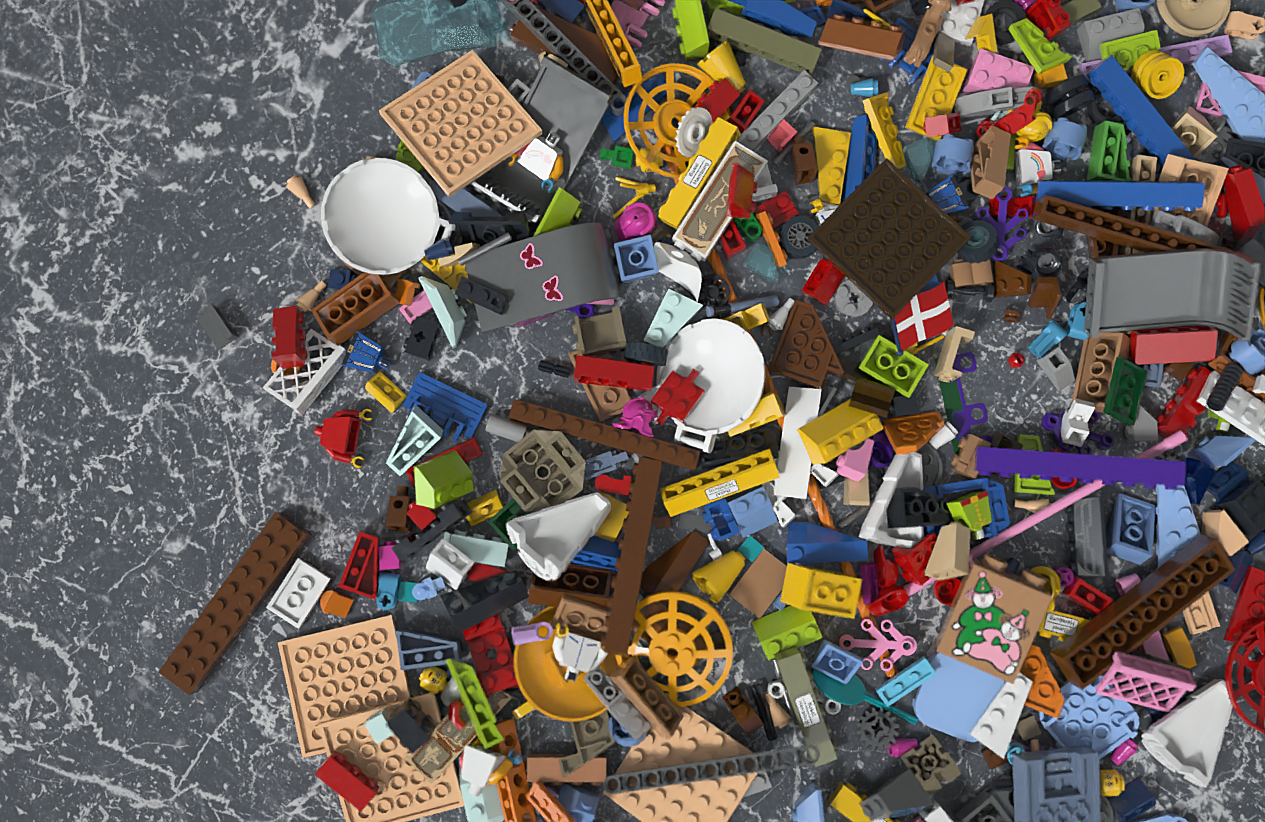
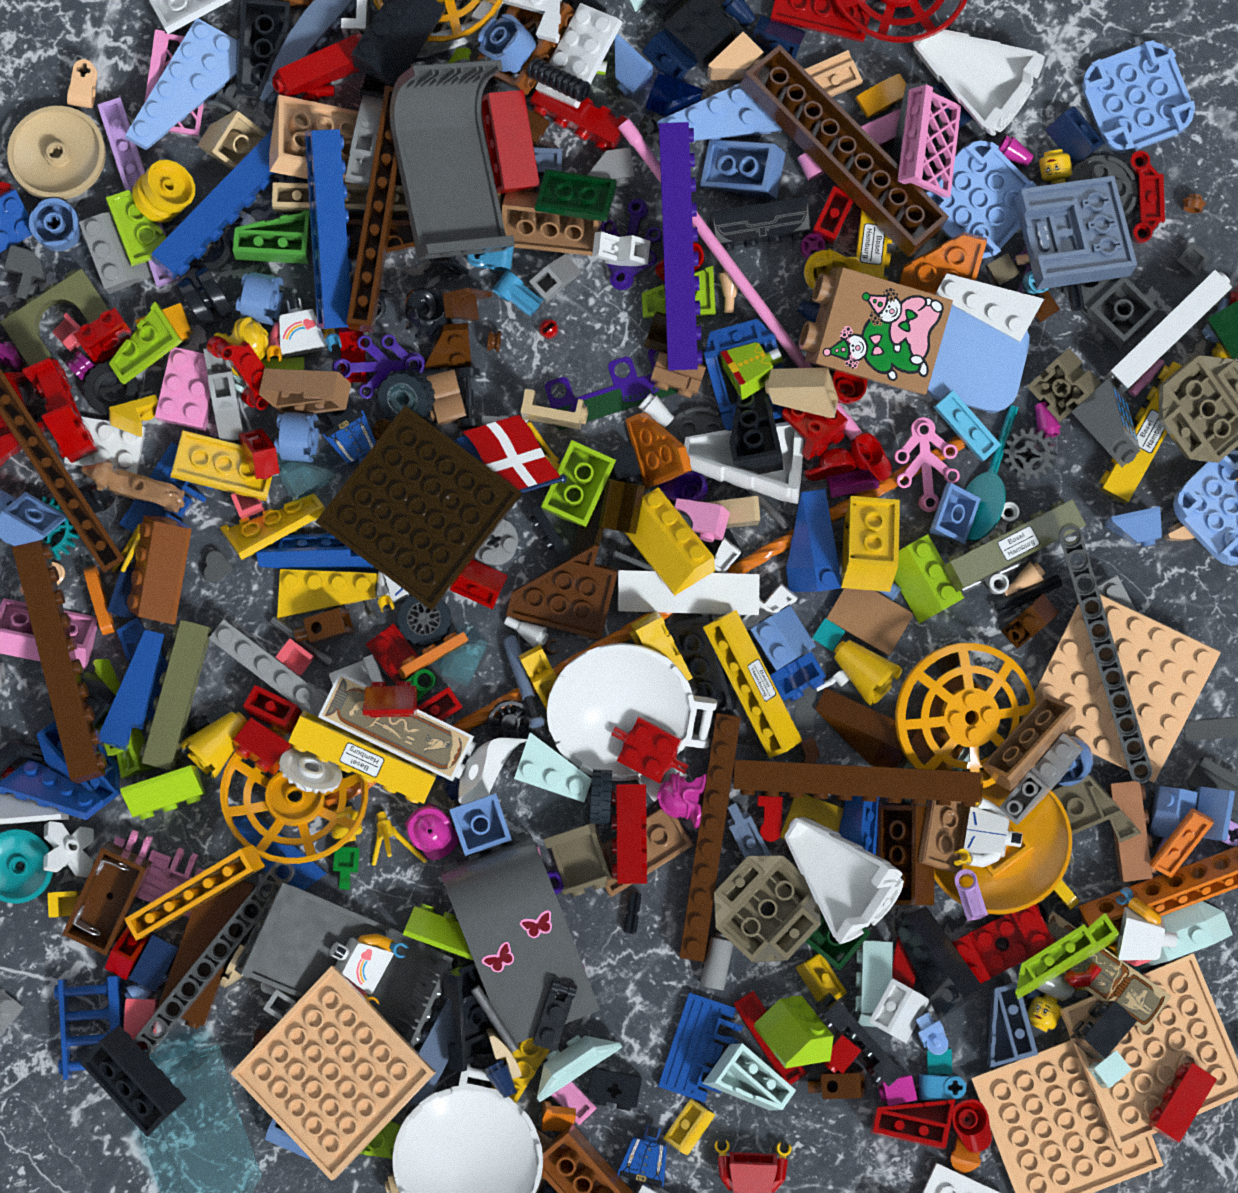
camera: 105 degrees left, 0 degrees up
(349, 611) = (976, 1132): none -> red cap
(865, 88) = (220, 555): dark azure cone -> none
(902, 112) = (247, 506): none -> coral panel
(944, 51) = (164, 463): dark tan tile -> none

